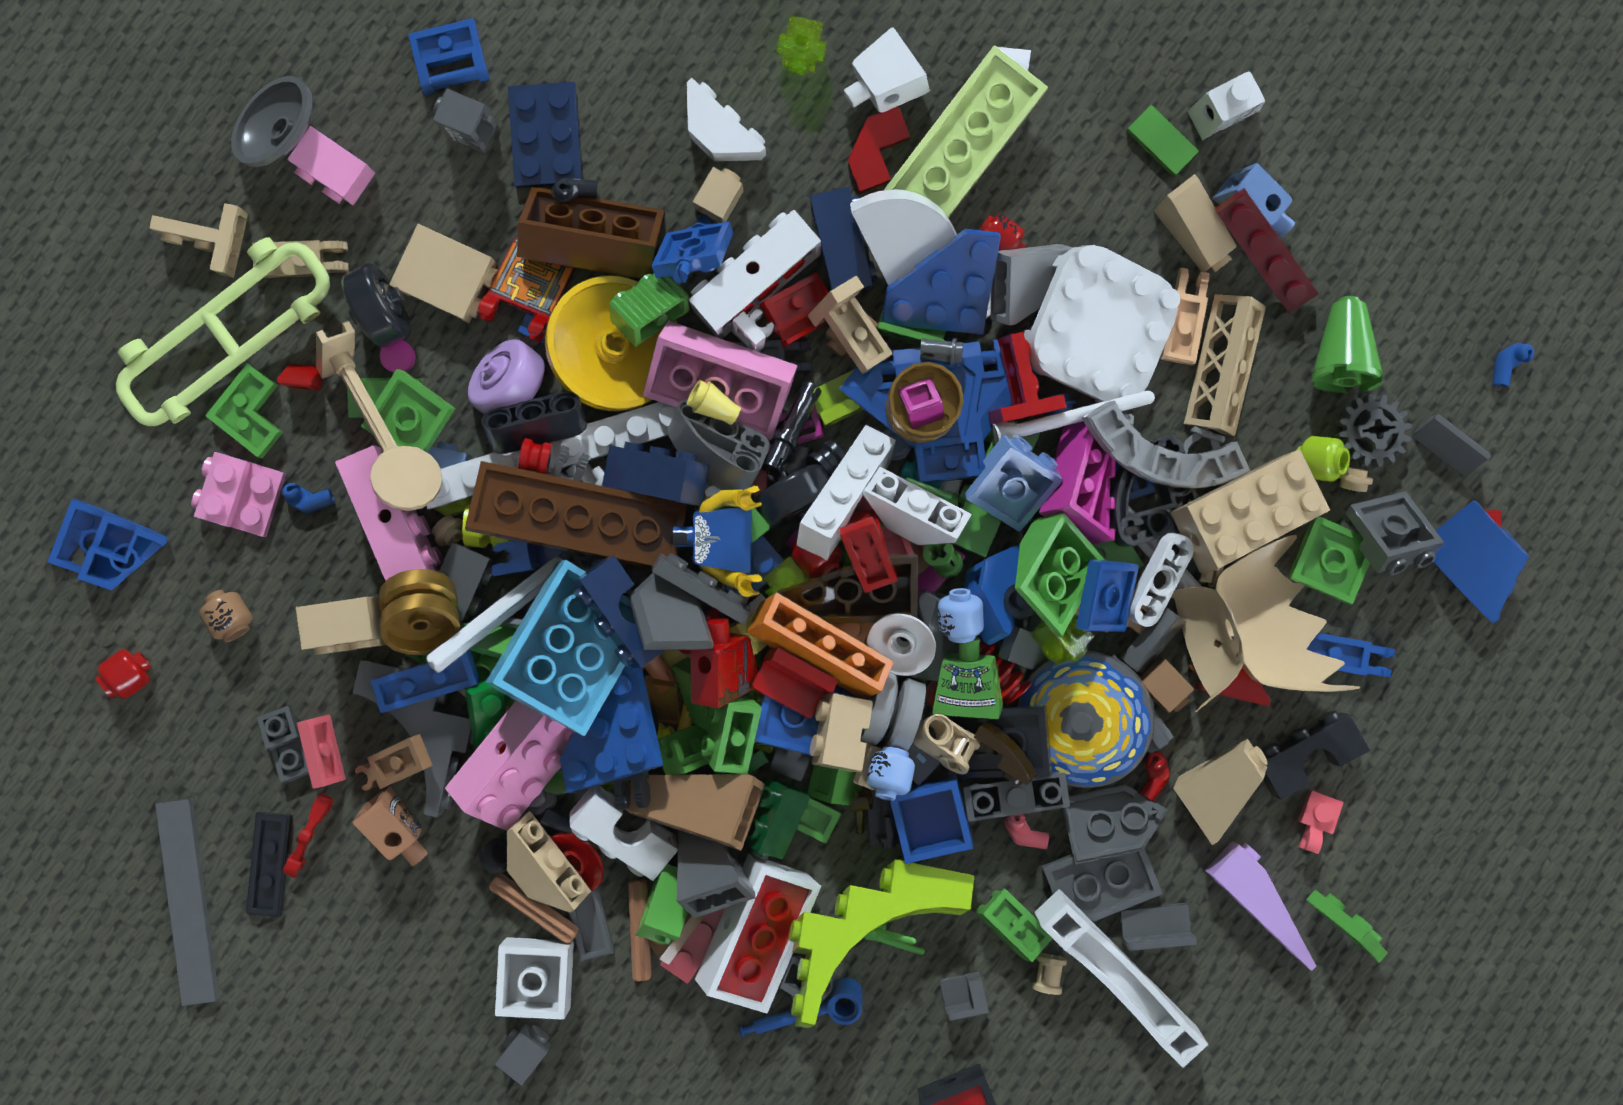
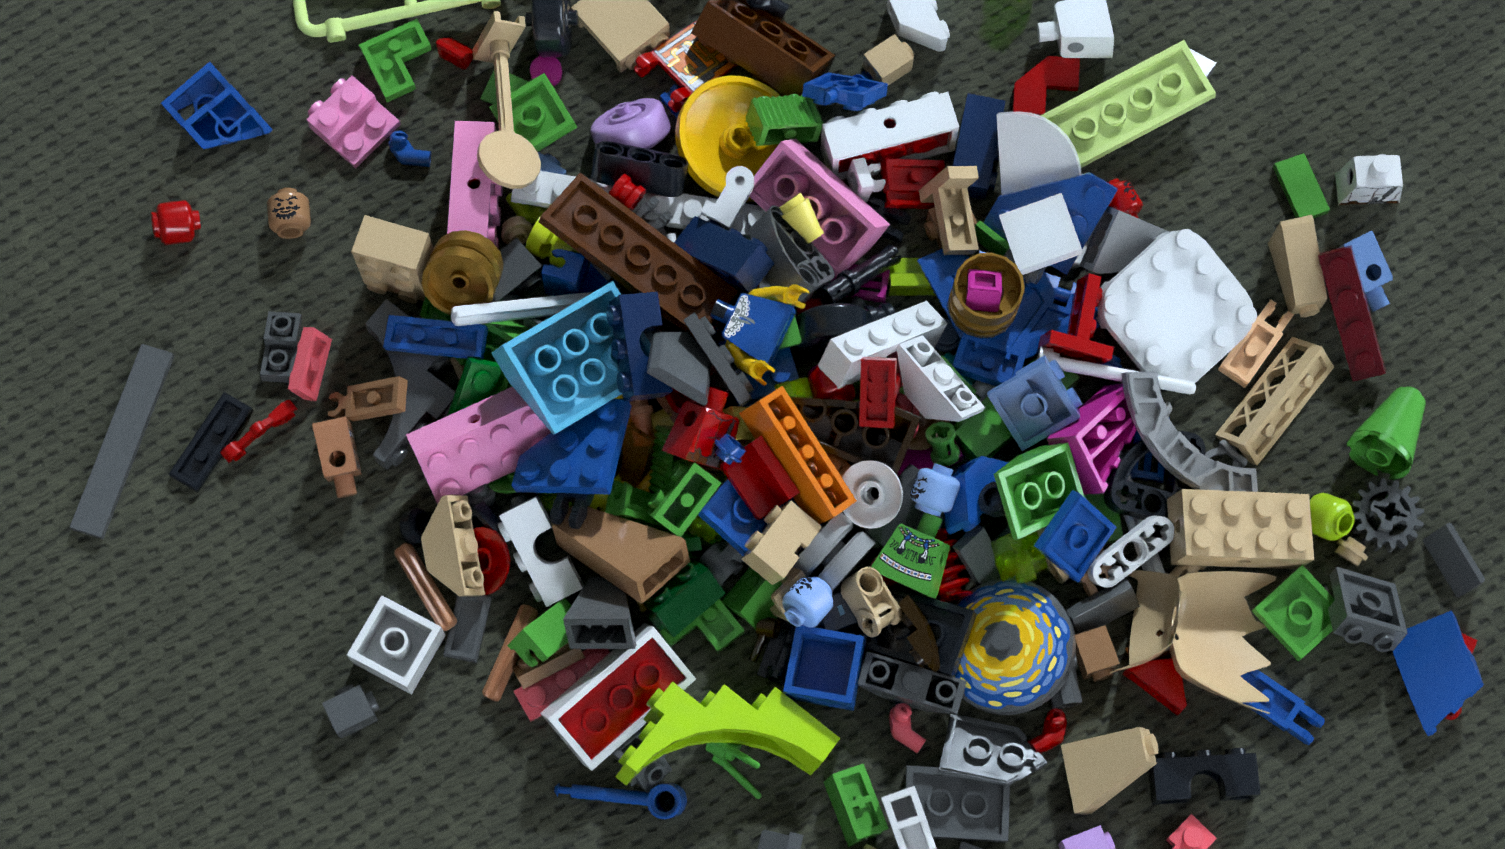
camera: 25 degrees right, 15 degrees down
(638, 402) = (732, 199): none -> white leg
(754, 673) = (729, 449): none -> blue plate
(947, 315) = (1041, 234): none -> white tile

